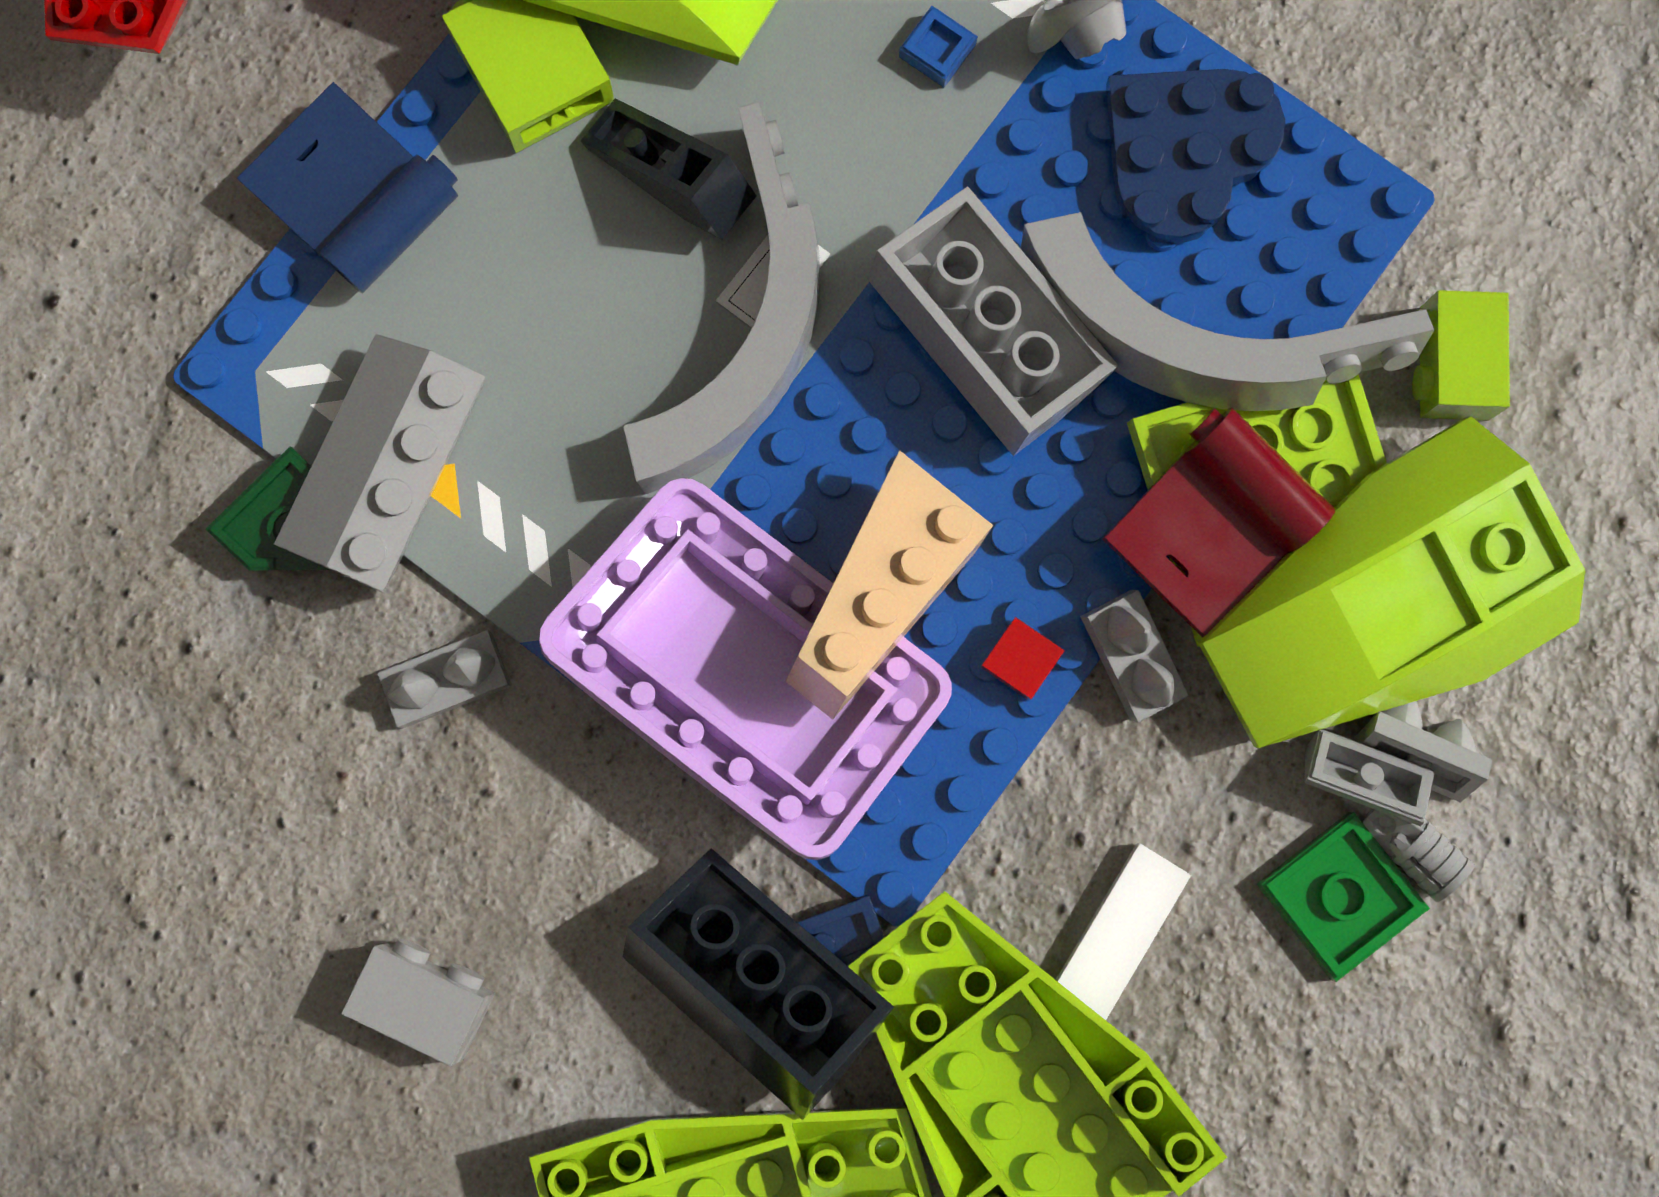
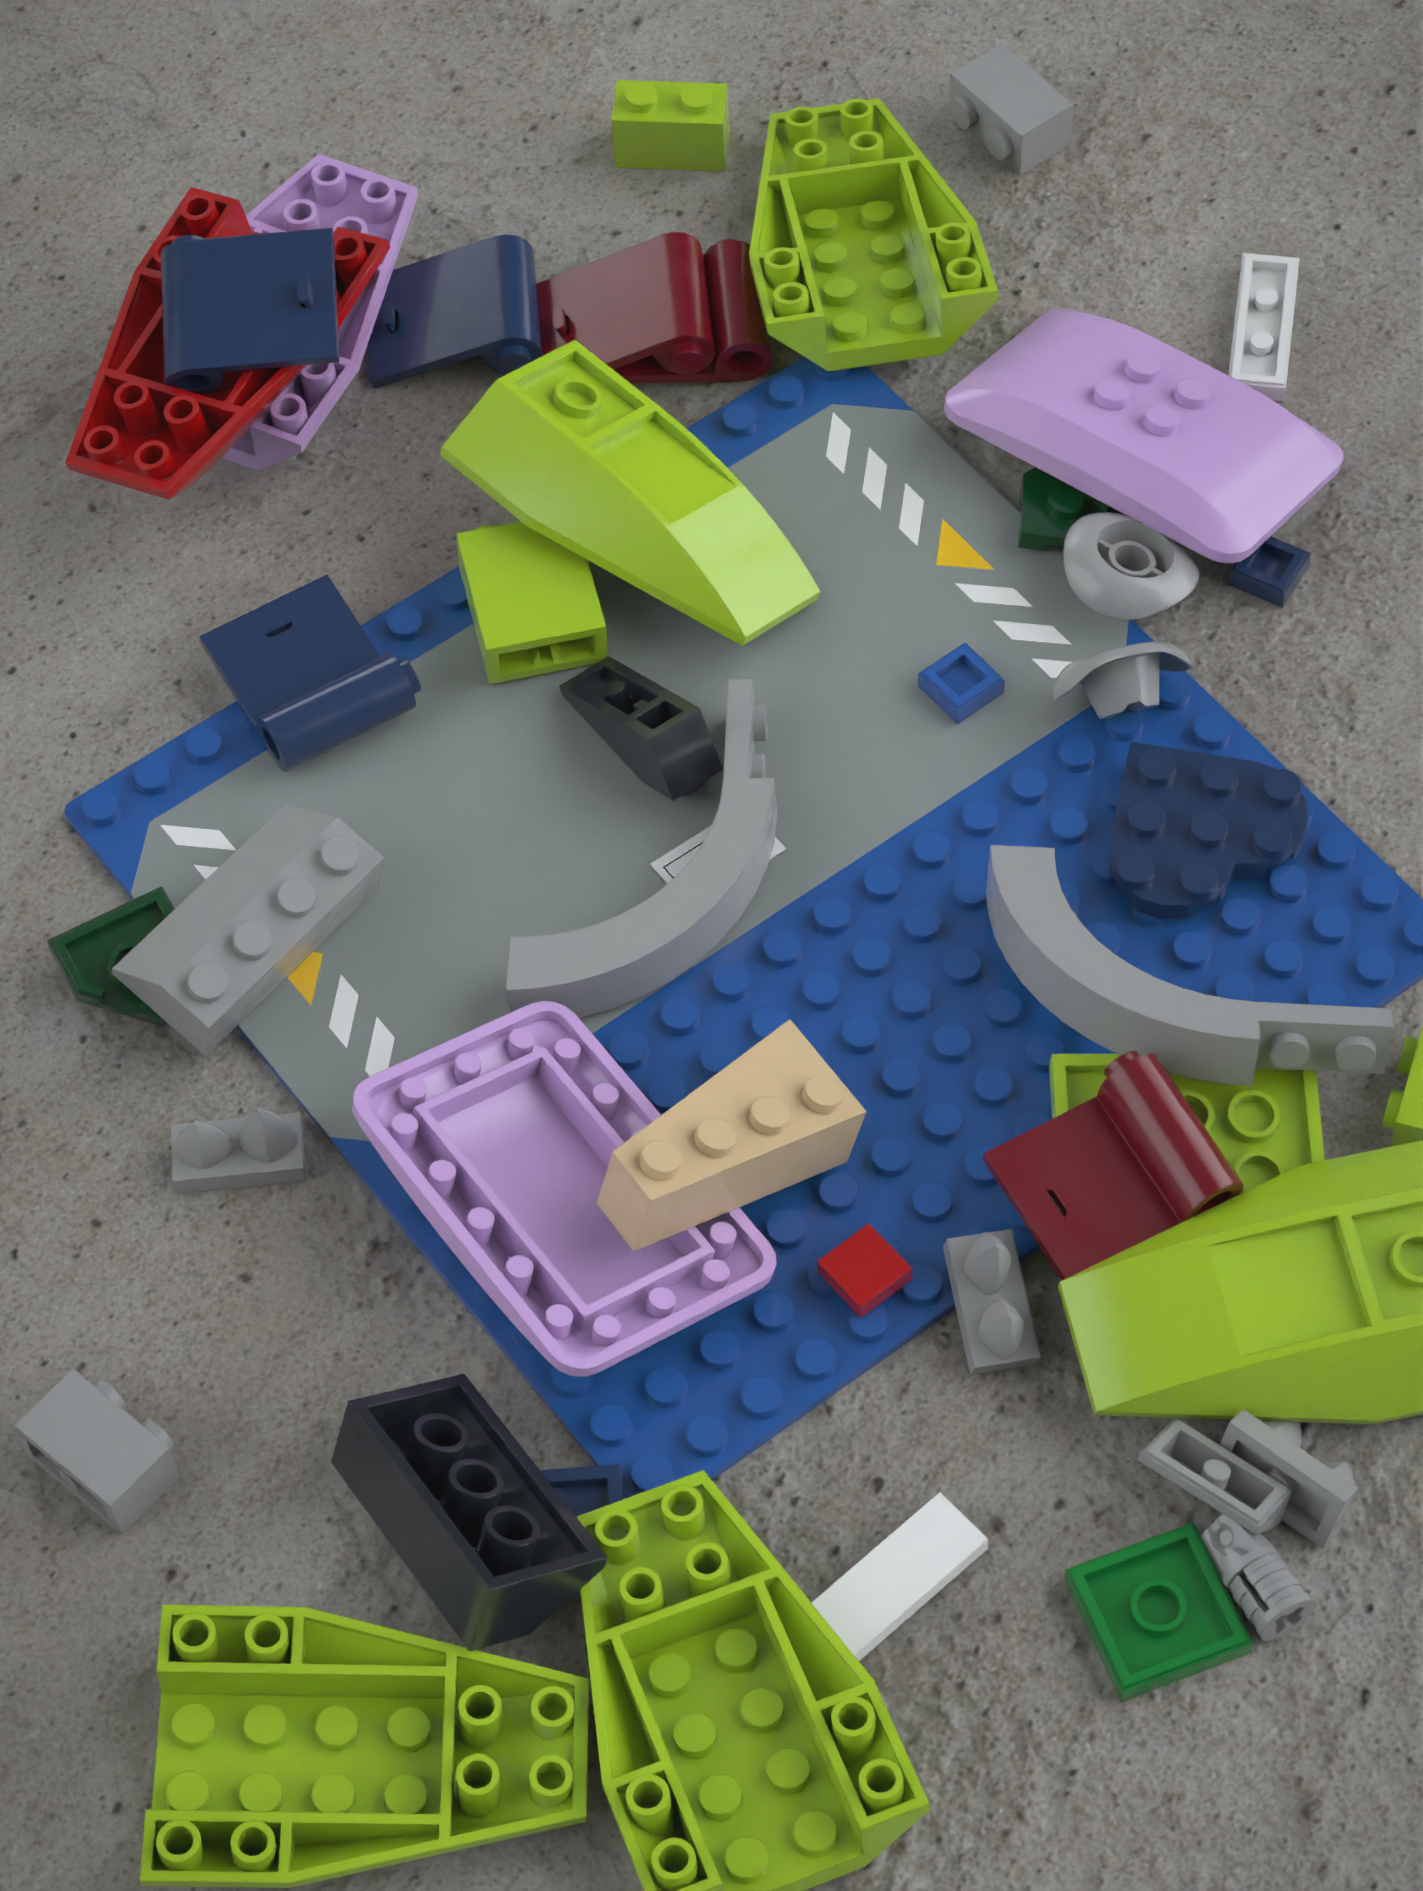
camera: 15 degrees right, 25 degrees down
(990, 320) = (927, 929): light grey slope -> none

